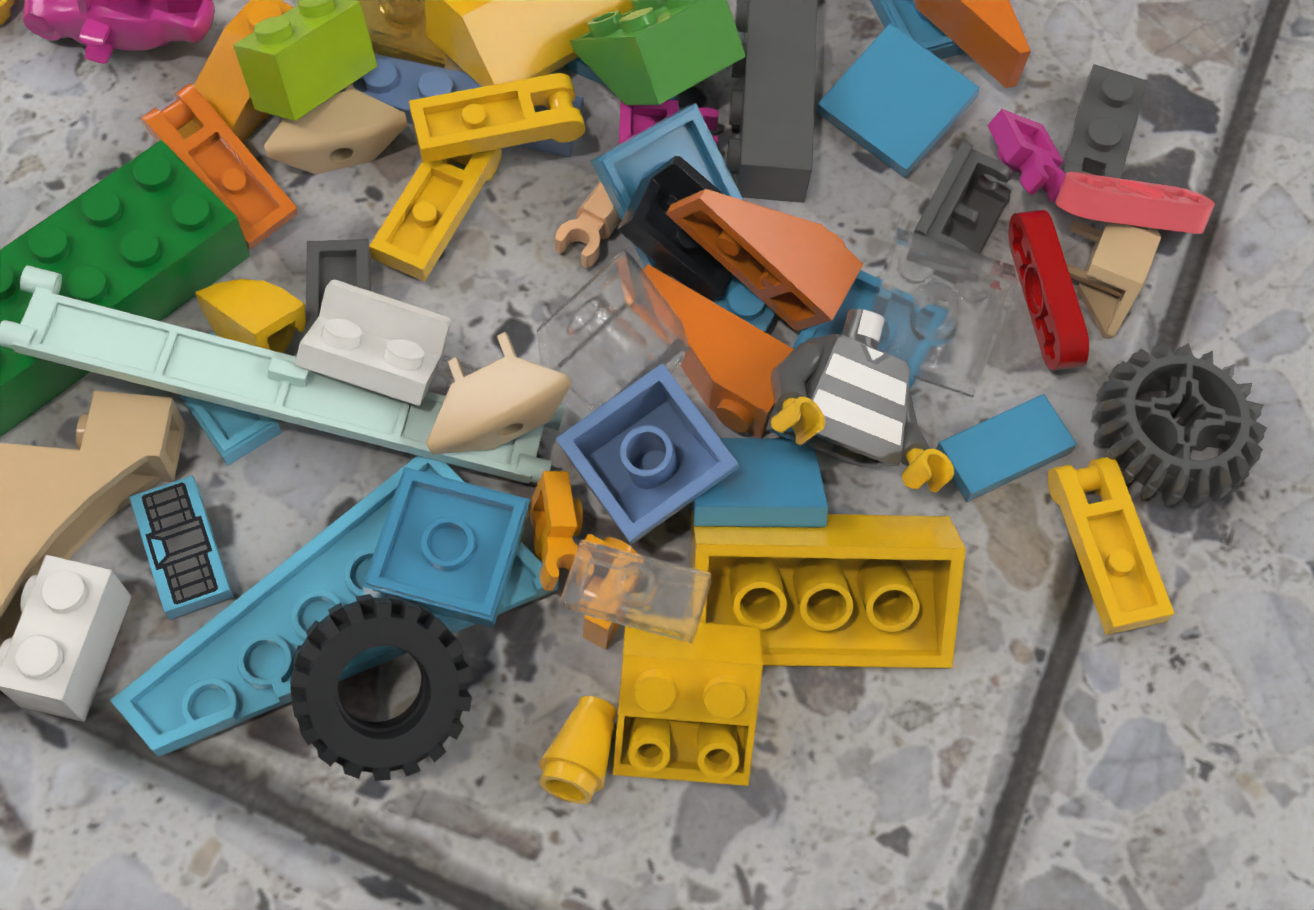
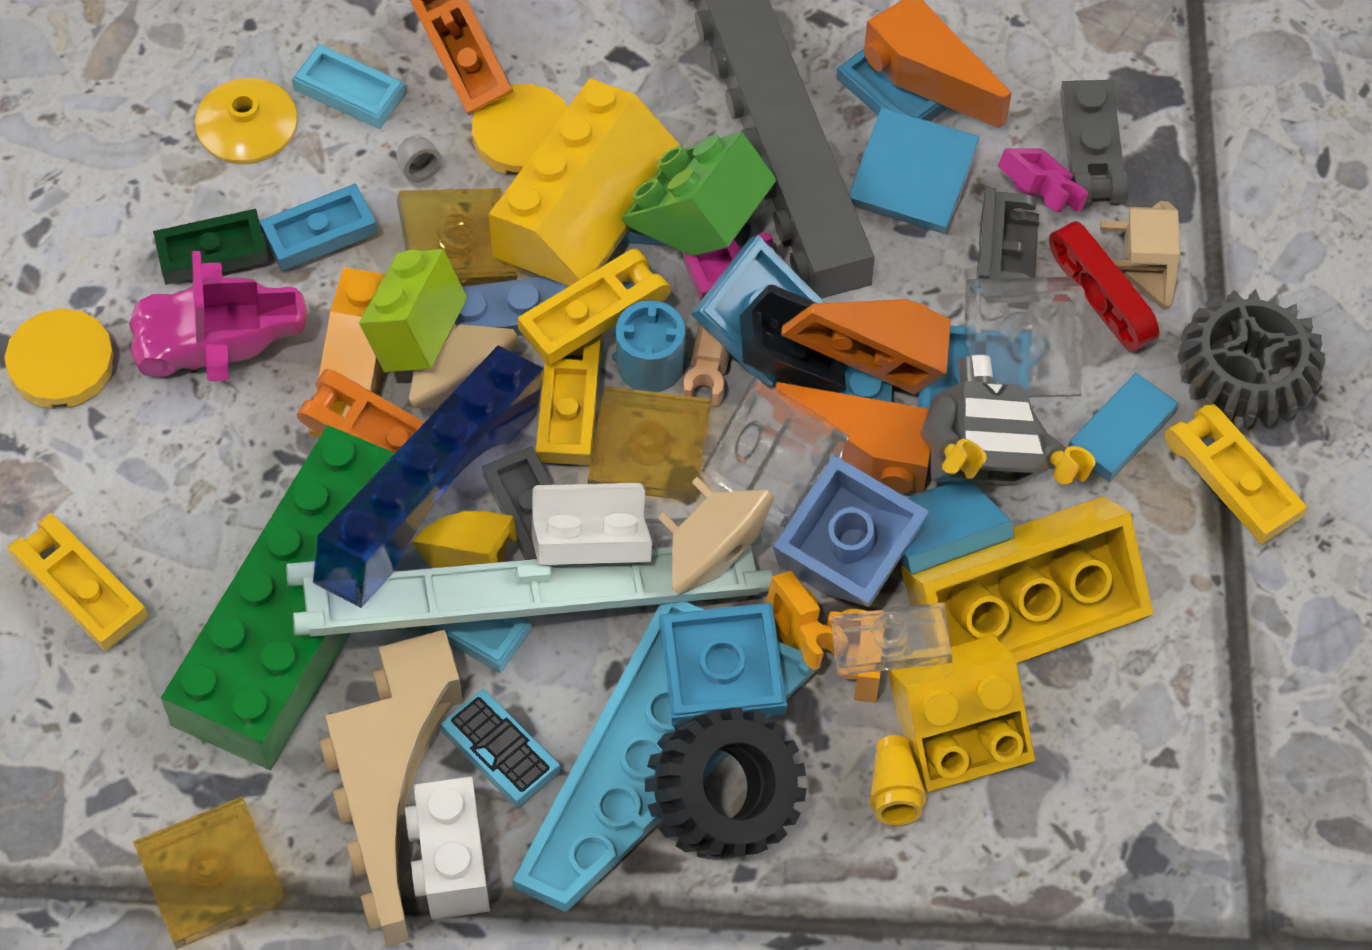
camera: 15 degrees left, 5 degrees down
(127, 261) = (376, 526): none -> clear blue arch
(496, 280) = (650, 441): none -> clear yellow plate
(539, 180) = (650, 346): none -> dark azure piece
(1134, 203) = (1145, 189): coral beam -> none

